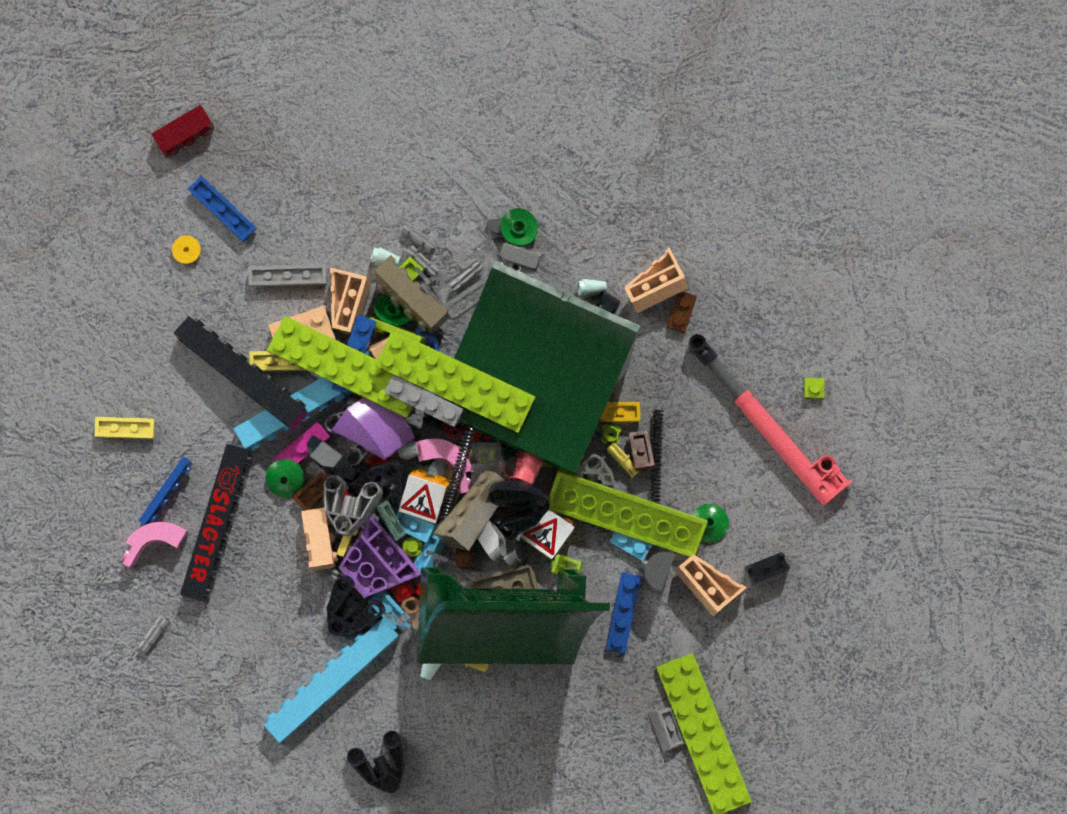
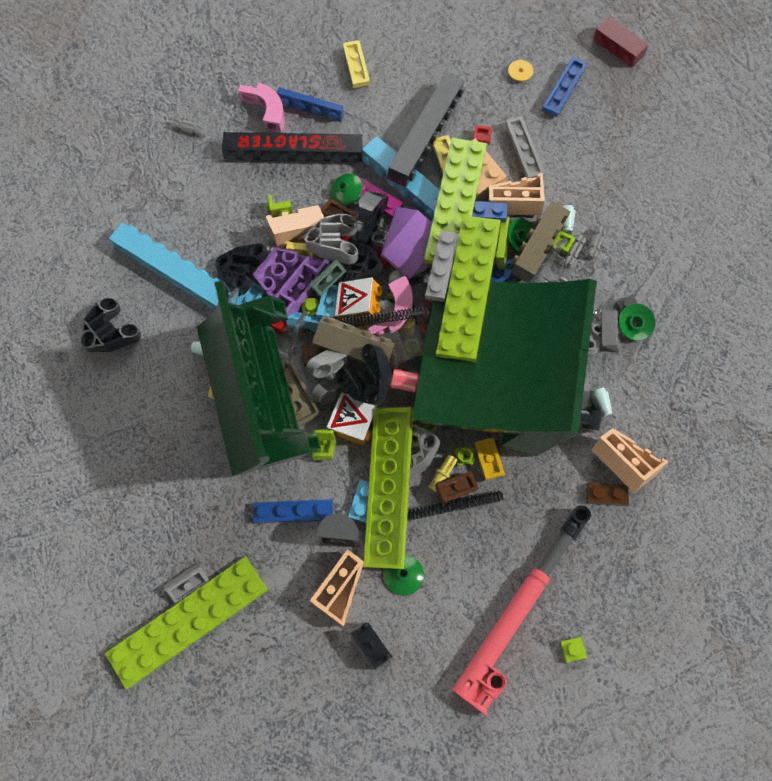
camera: 80 degrees right, 10 degrees down
(257, 315) = (483, 133): none -> red plate
(292, 551) = (278, 208): none -> lime bracket

